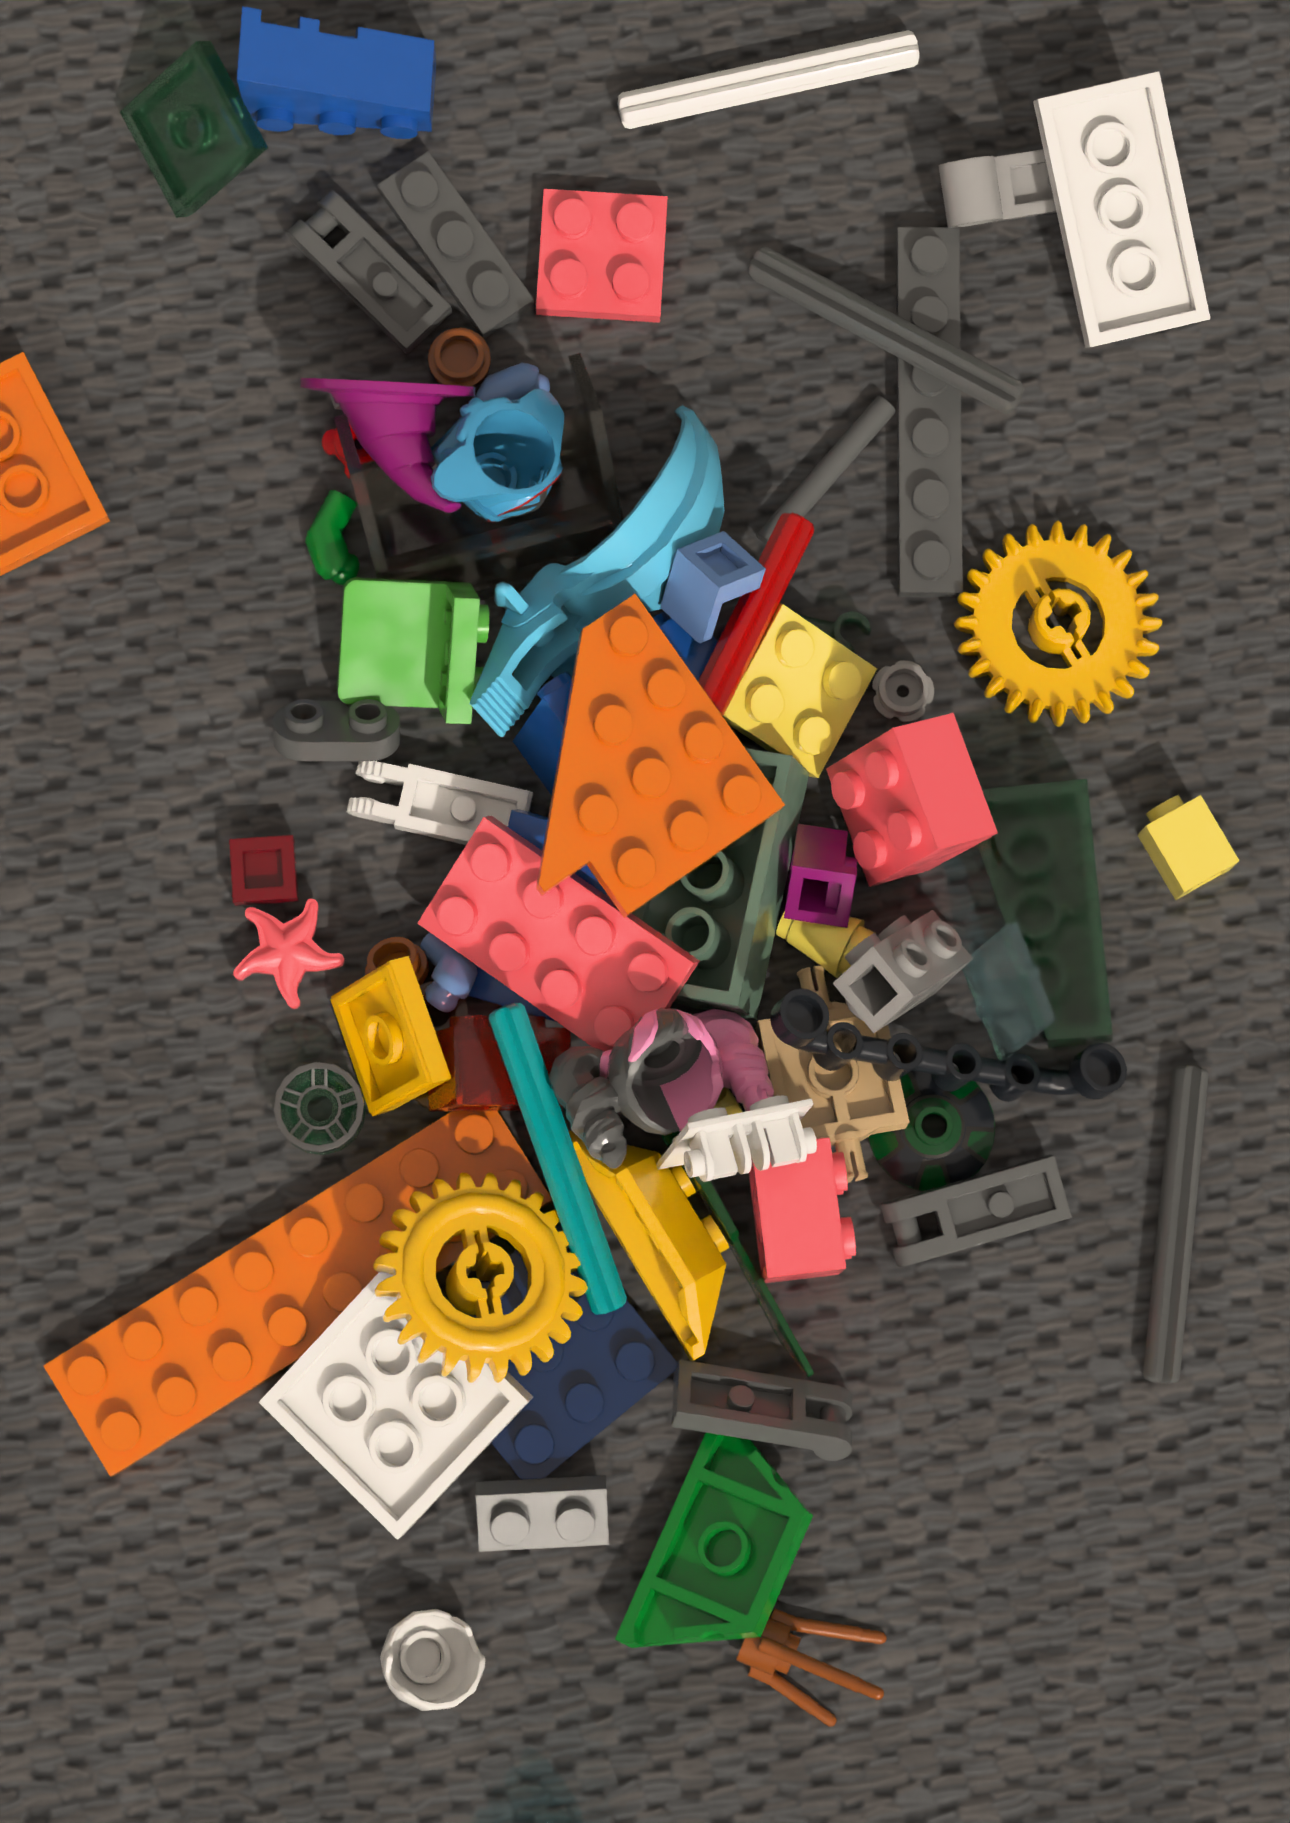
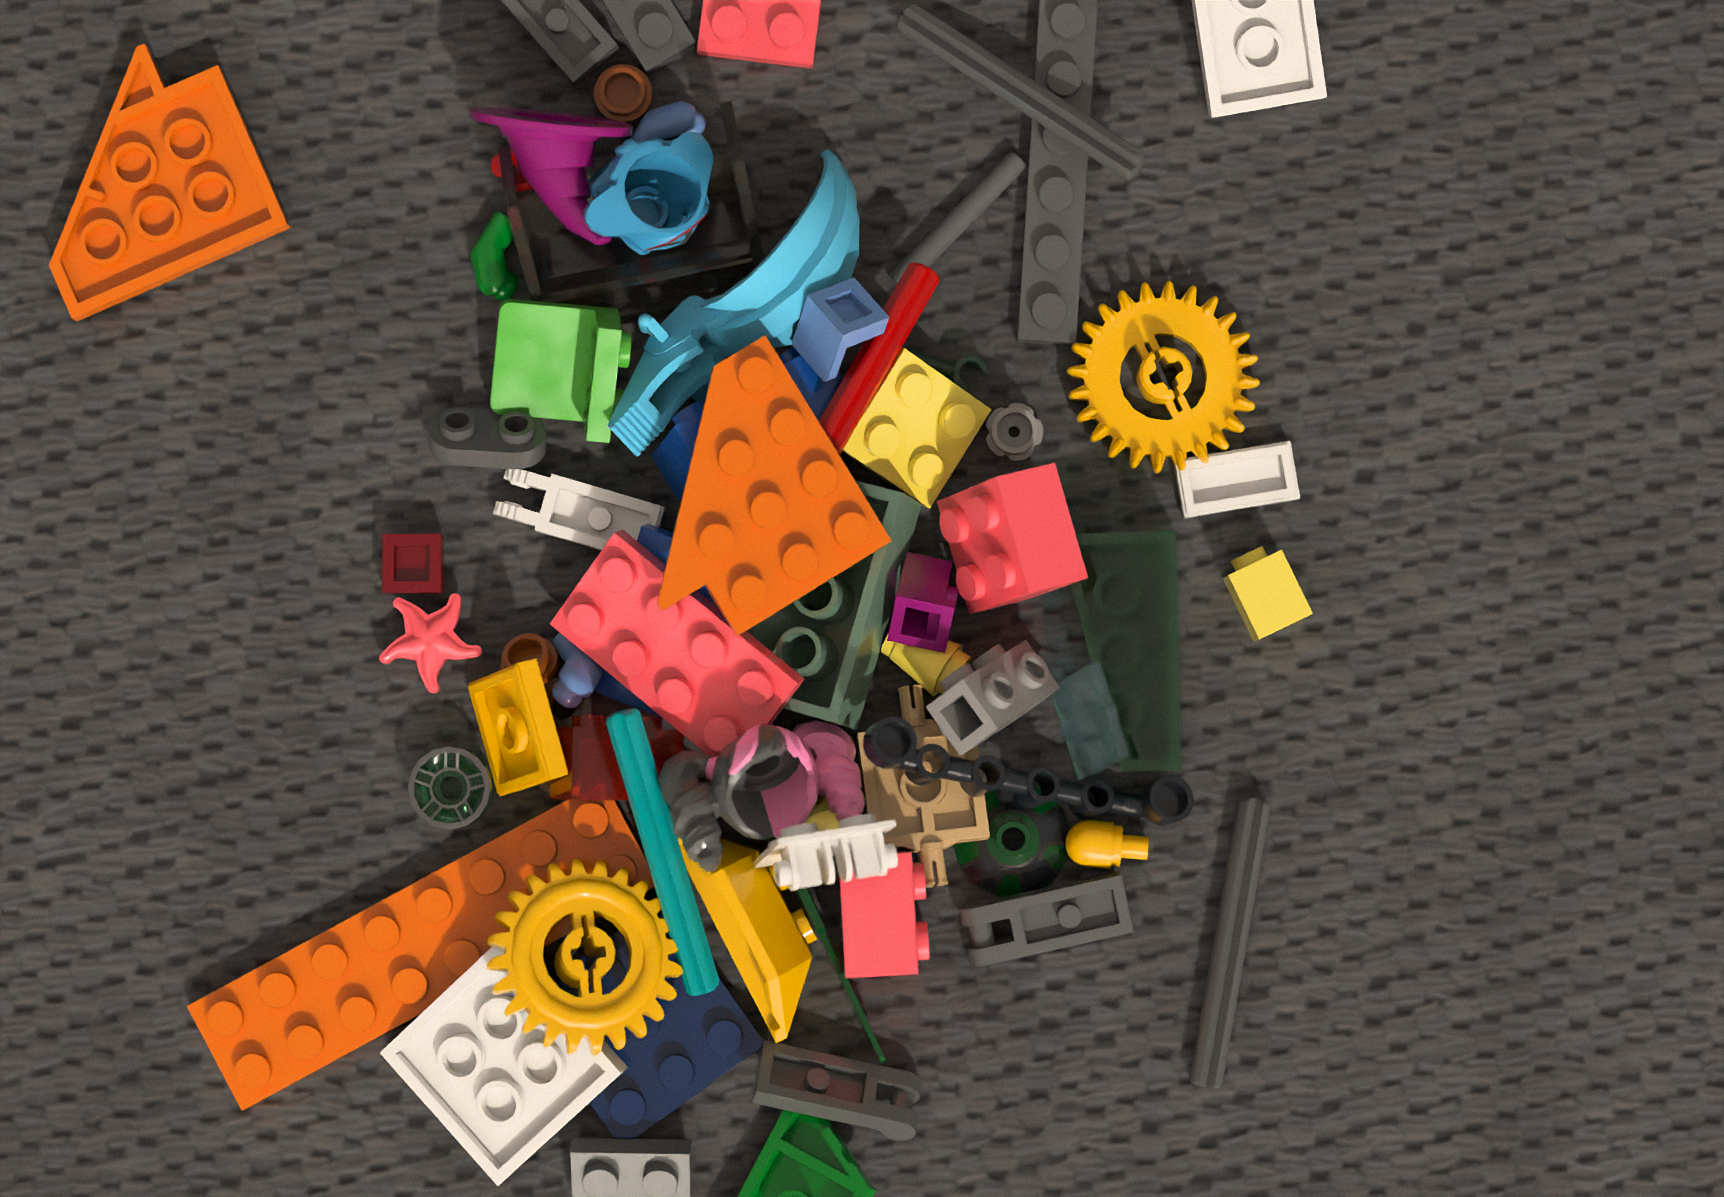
camera: 15 degrees right, 5 degrees up
(1031, 1126) = (1103, 844): none -> yellow cylinder
(1146, 728) = (1237, 480): none -> white tile

